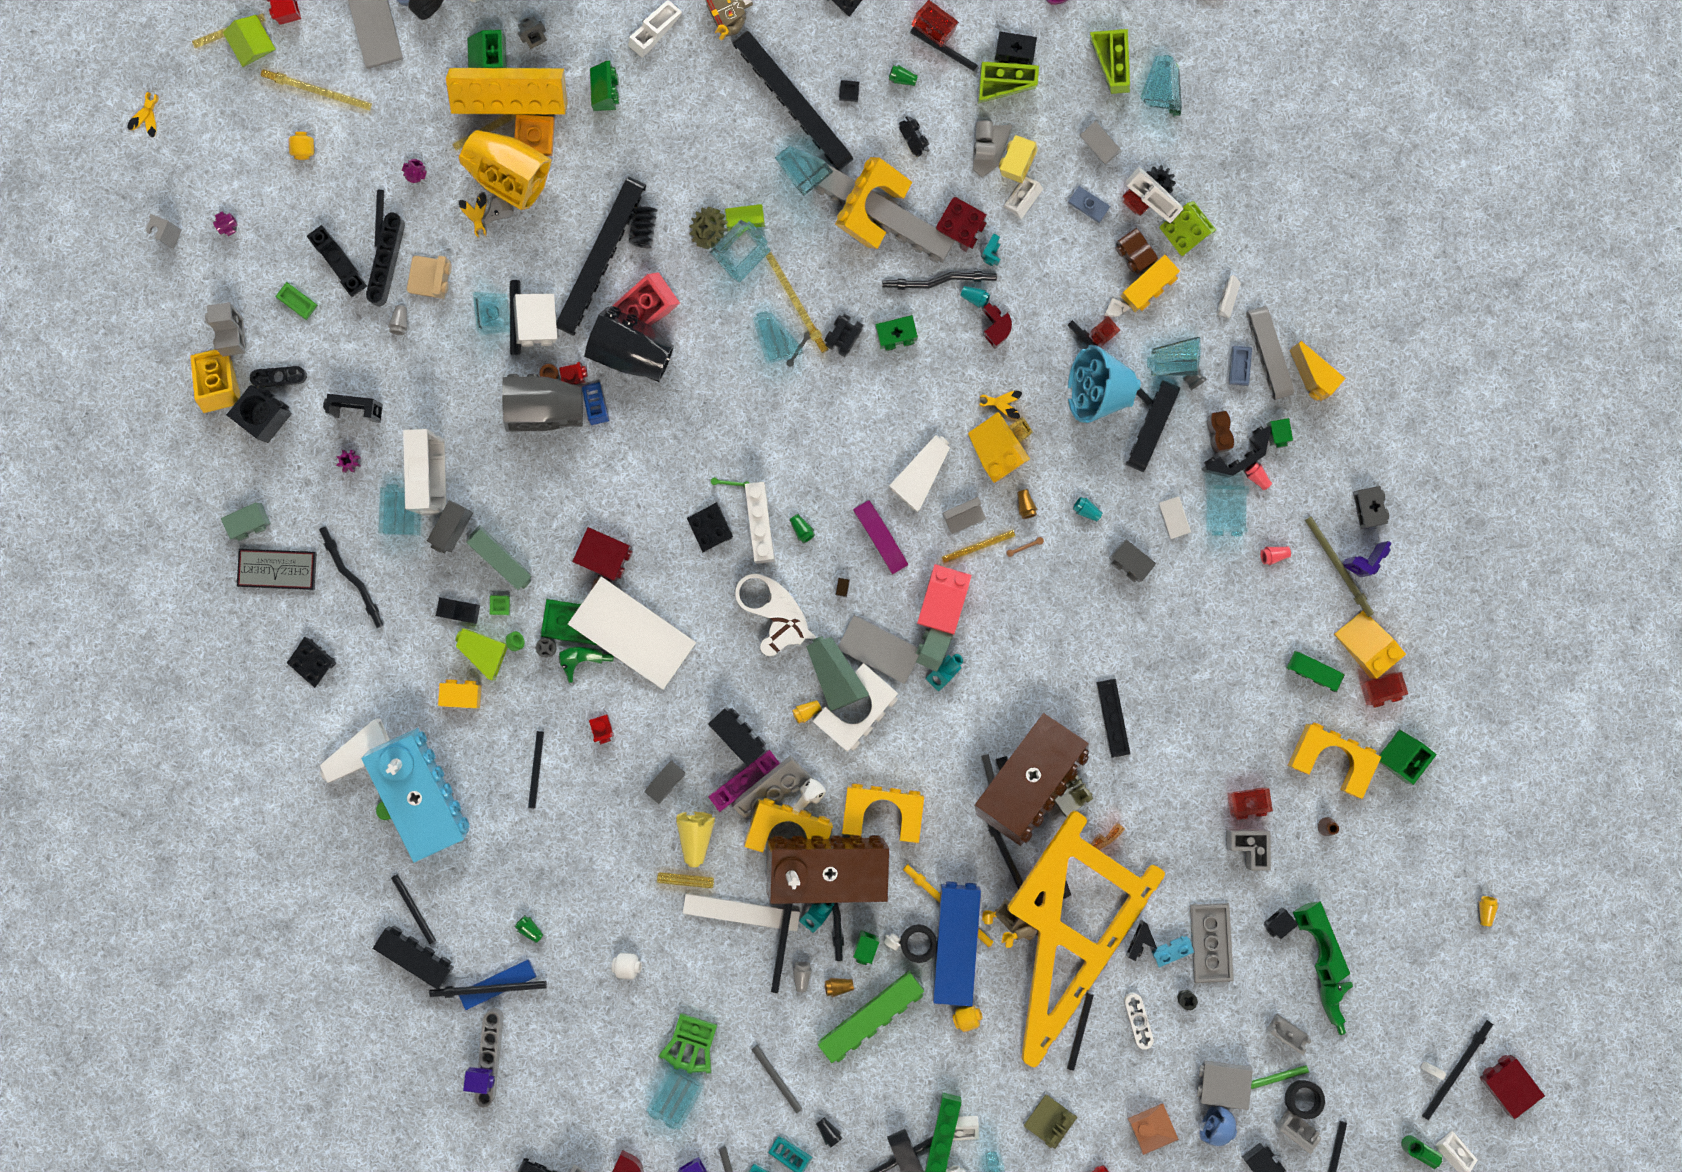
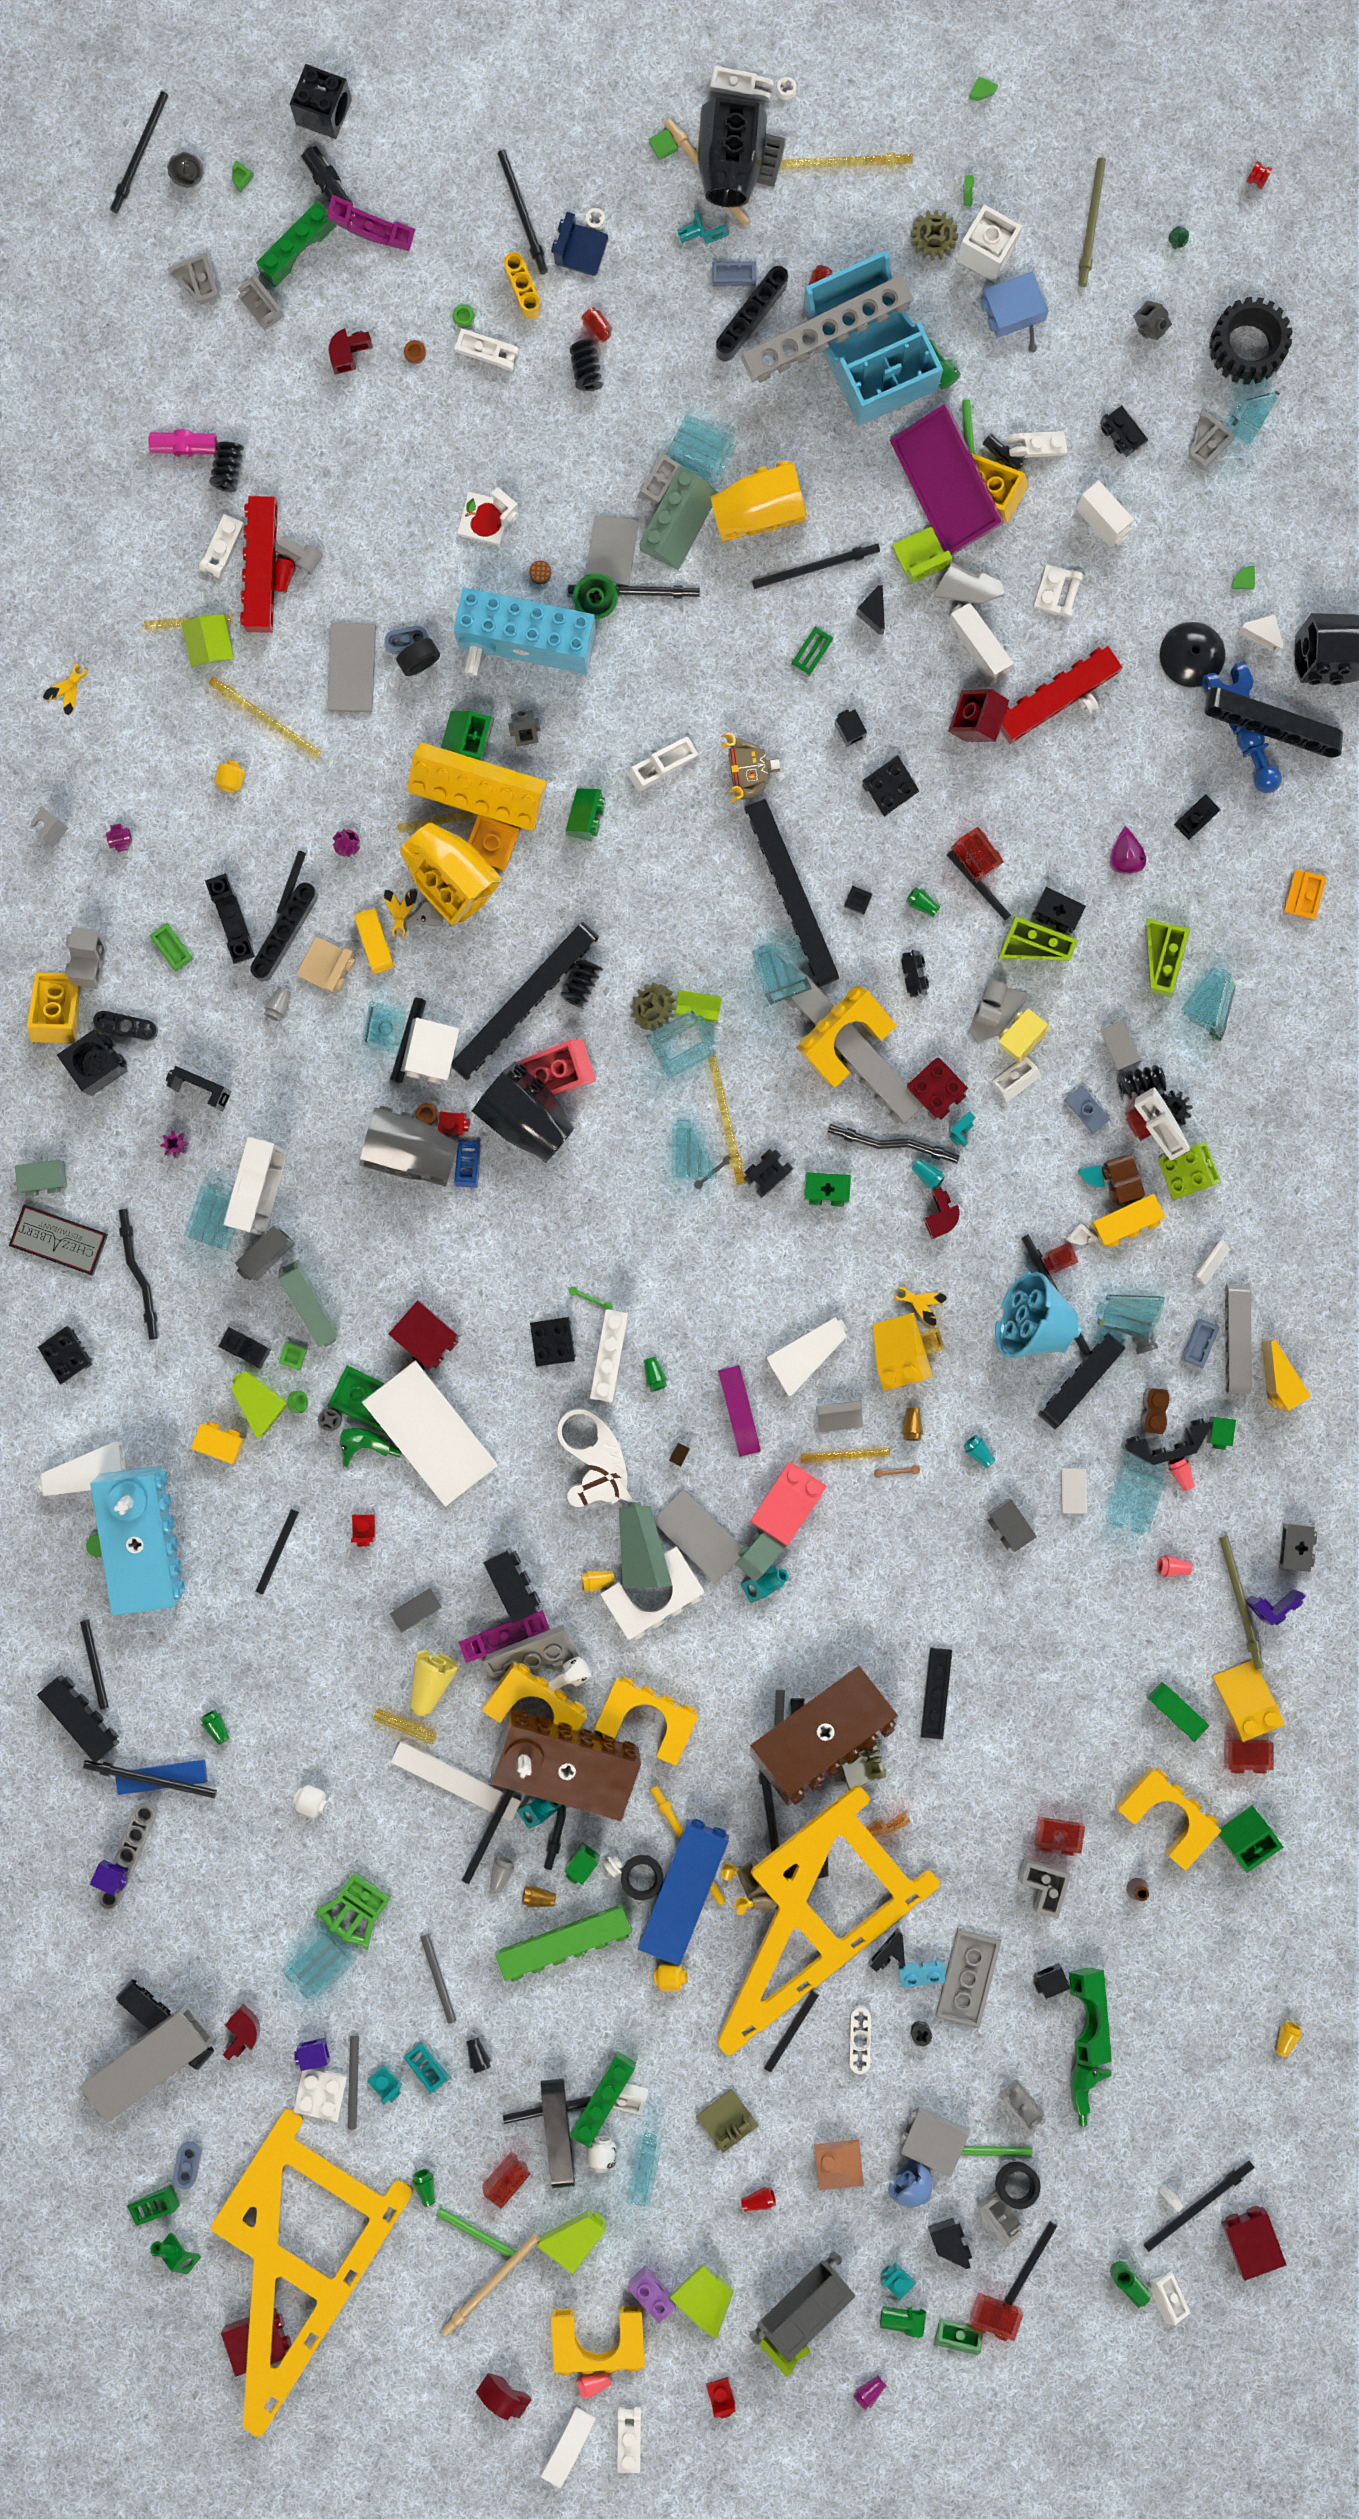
camera: 20 degrees right, 0 degrees up
(462, 244) = (374, 941): none -> yellow beam
(1110, 257) = (1093, 1176): none -> teal tile
(1125, 166) = (1141, 1081): none -> black piece

